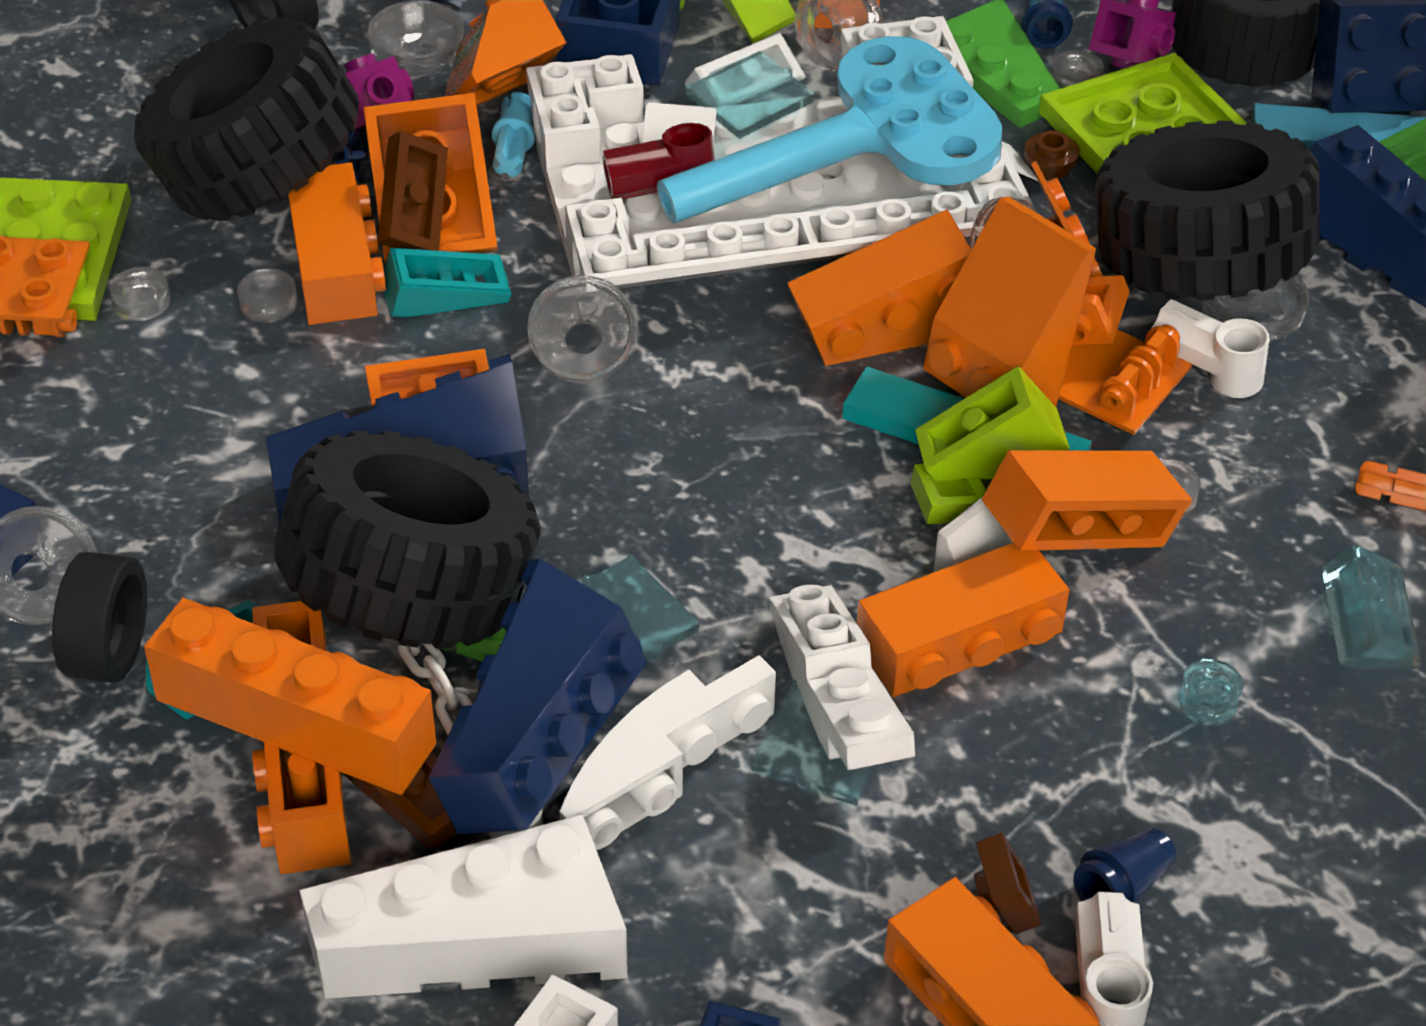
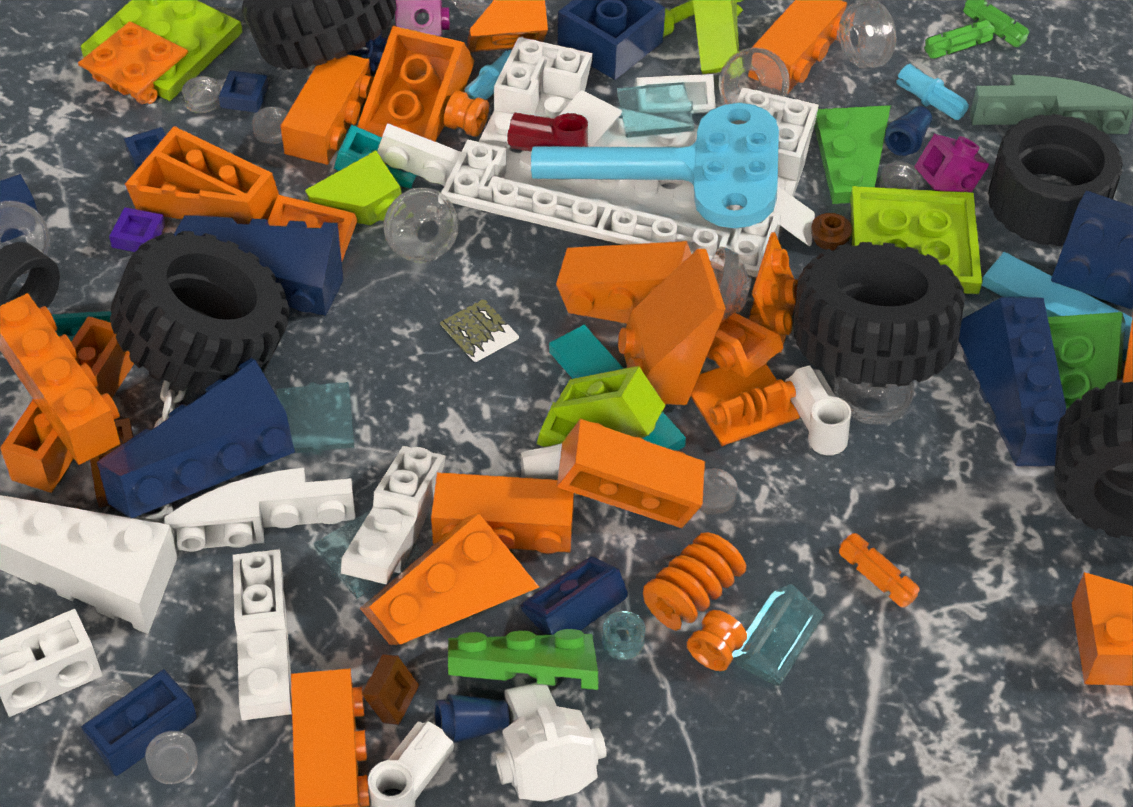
camera: 30 degrees right, 5 degrees up
(130, 386) = (142, 144): none -> dark blue plate
(198, 489) = (136, 228): none -> dark purple plate
(199, 267) = (243, 91): none -> dark blue plate
(238, 387) = (201, 180): none -> orange wedge
(412, 193) = (385, 94): reddish brown plate -> none
(470, 314) = (359, 188): none -> lime slope
(507, 251) = (417, 154): none -> white plate
(517, 184) = (466, 113): none -> orange wheel
(736, 429) = (479, 330): none -> sticker
(788, 900) = (261, 635): none -> white slope
(981, 722) = (448, 583): none -> orange wedge
(1113, 777) = (540, 656): none -> bright green wing
(1118, 679) = (576, 597): none -> dark blue slope
(1245, 590) = (693, 580): none -> orange piece
(1261, 849) = (546, 746): none -> white piece
(1325, 644) = (717, 640): none -> orange wheel

